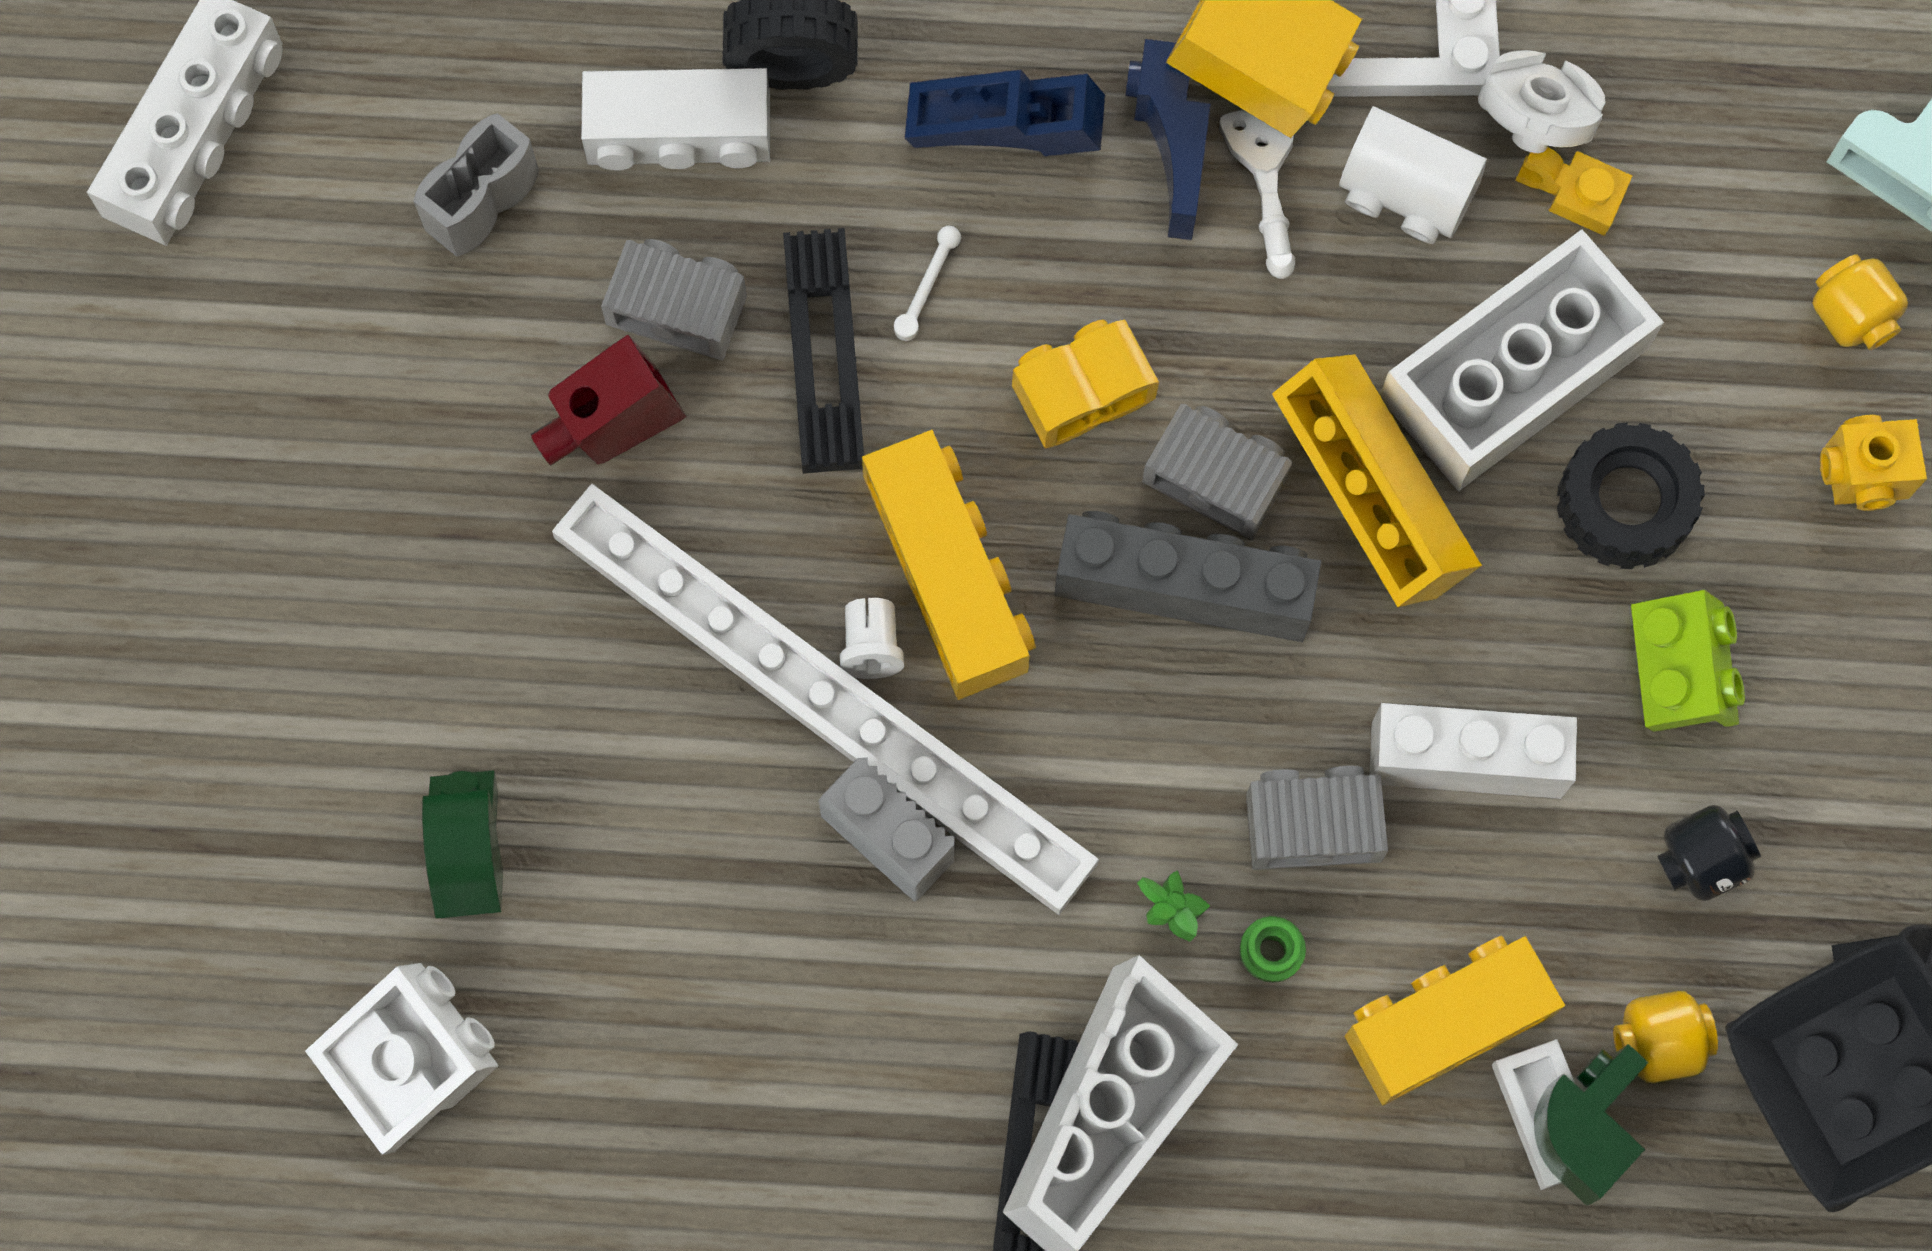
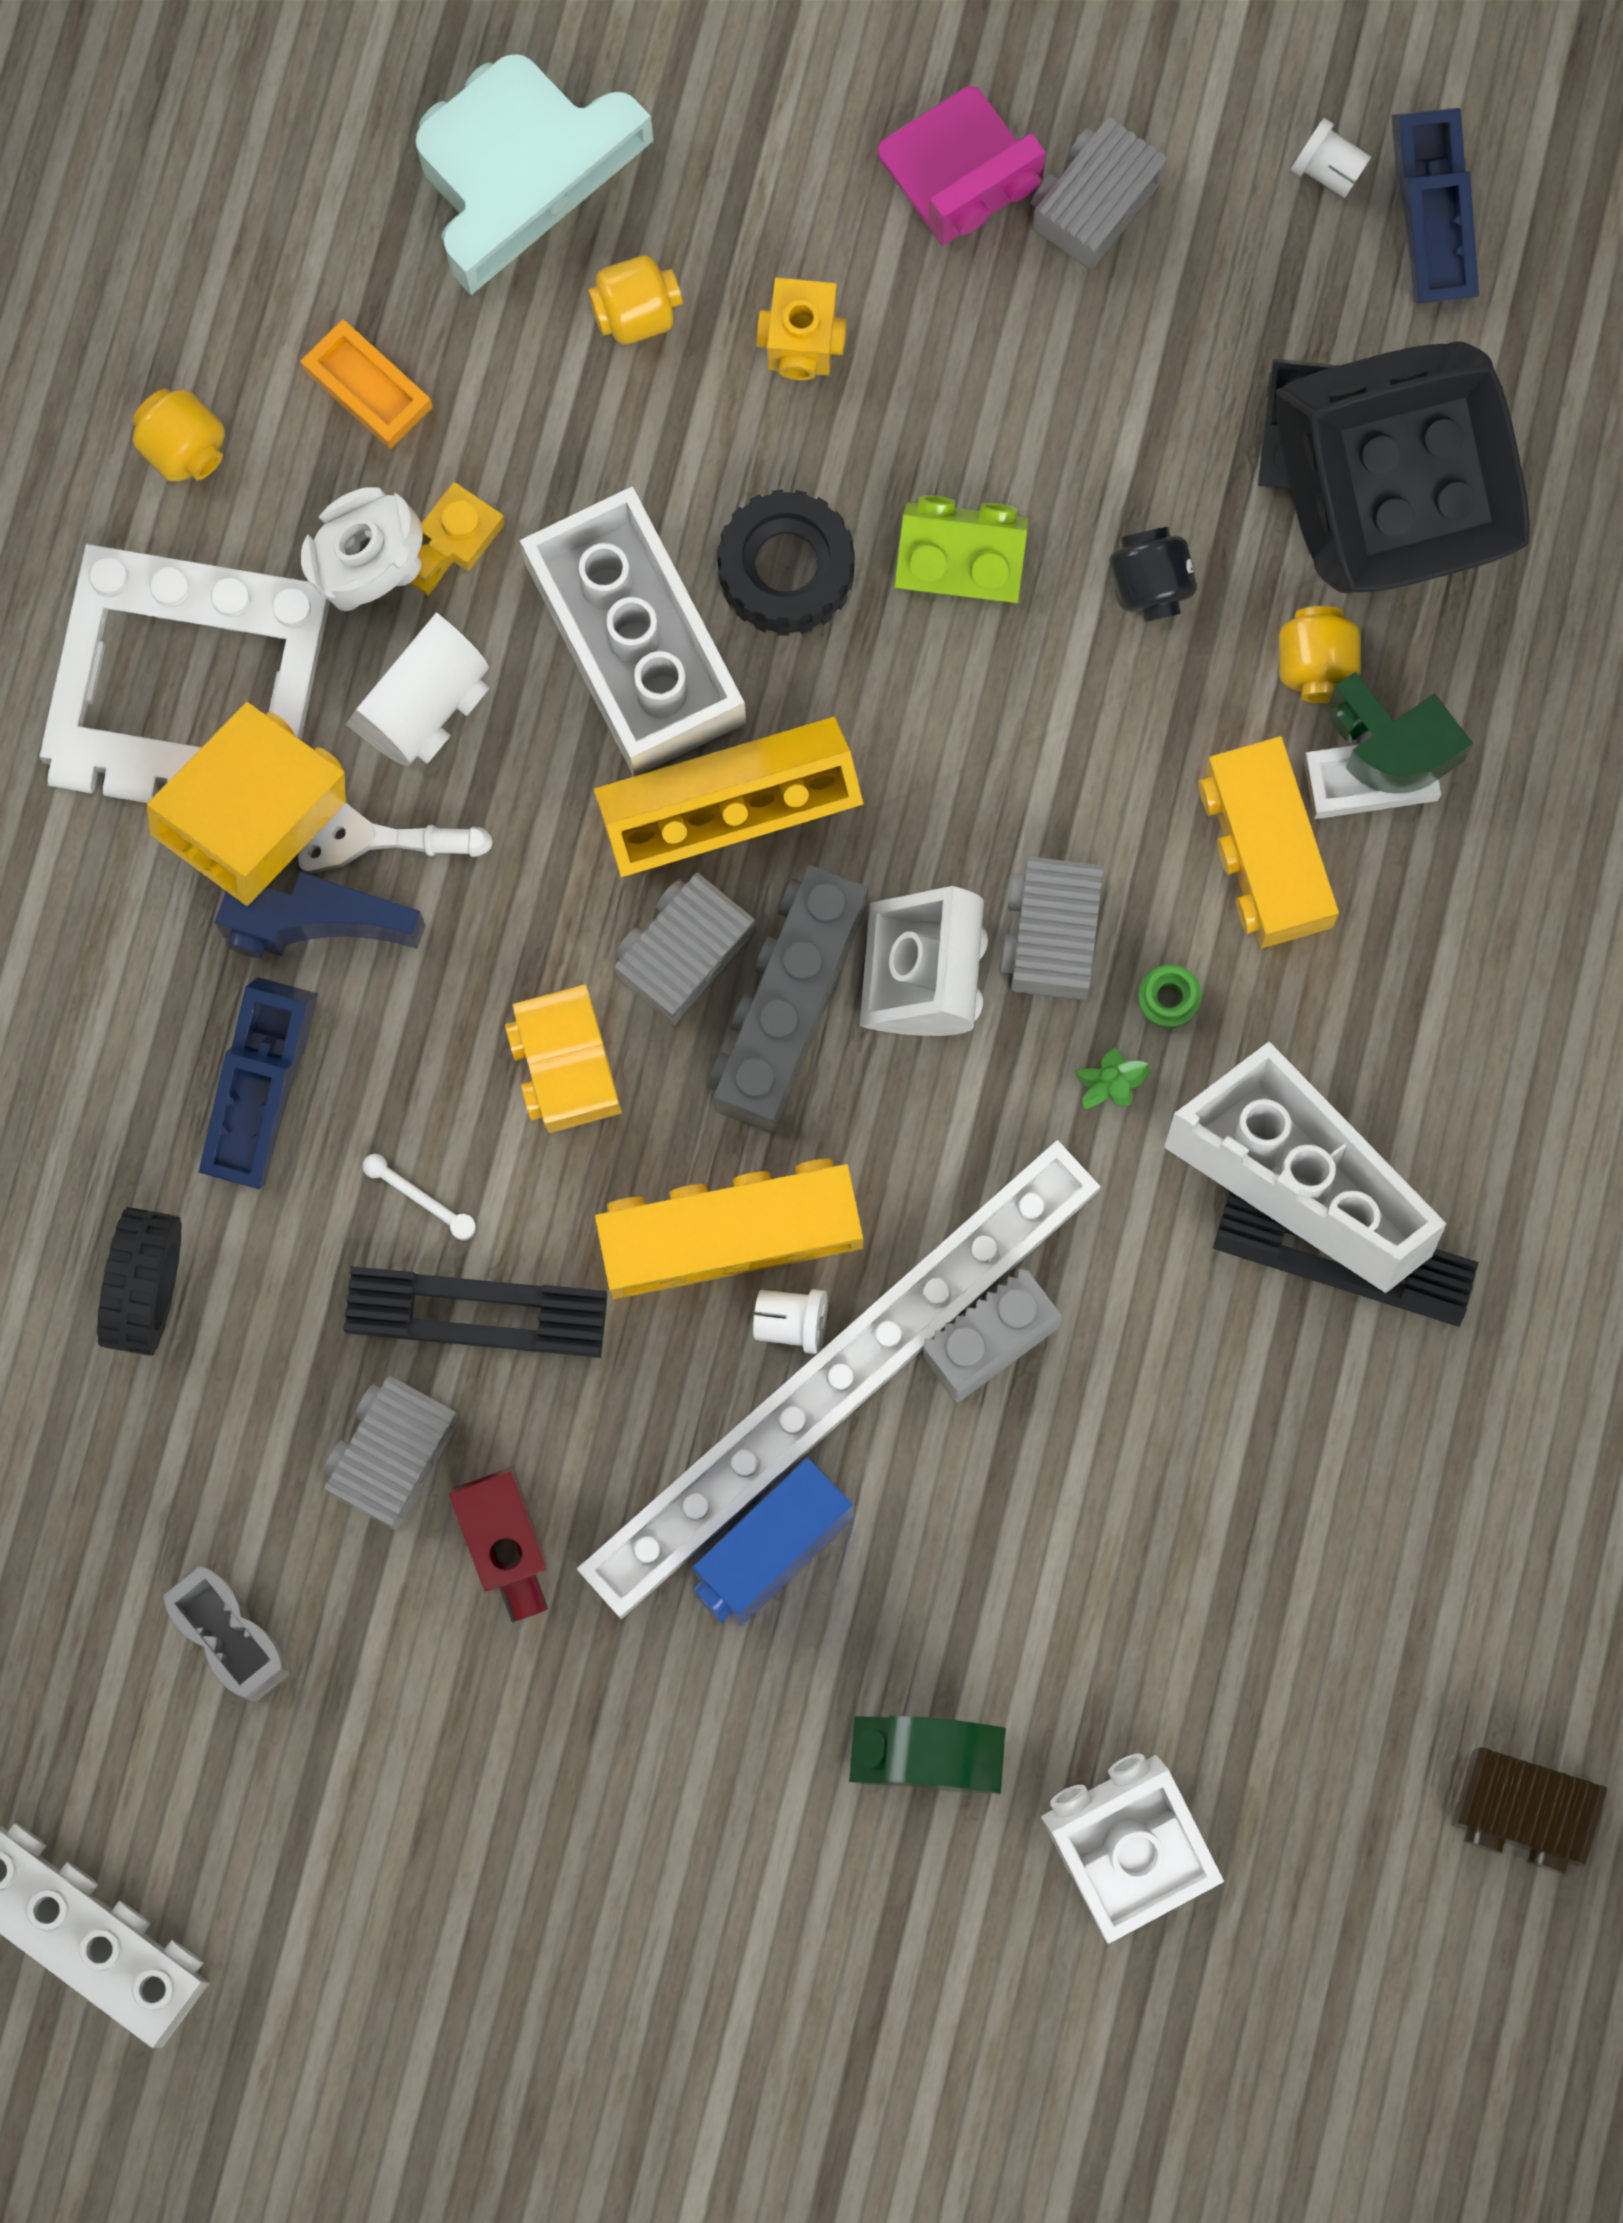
camera: 75 degrees left, 5 degrees up
(640, 651) = (771, 1544): none -> blue brick
(676, 117) = (190, 1418): white brick -> none
(1250, 699) = (924, 963): none -> white brick
(1473, 750) = (1015, 767): white brick -> none
(1709, 82) = (366, 384): none -> light orange tile

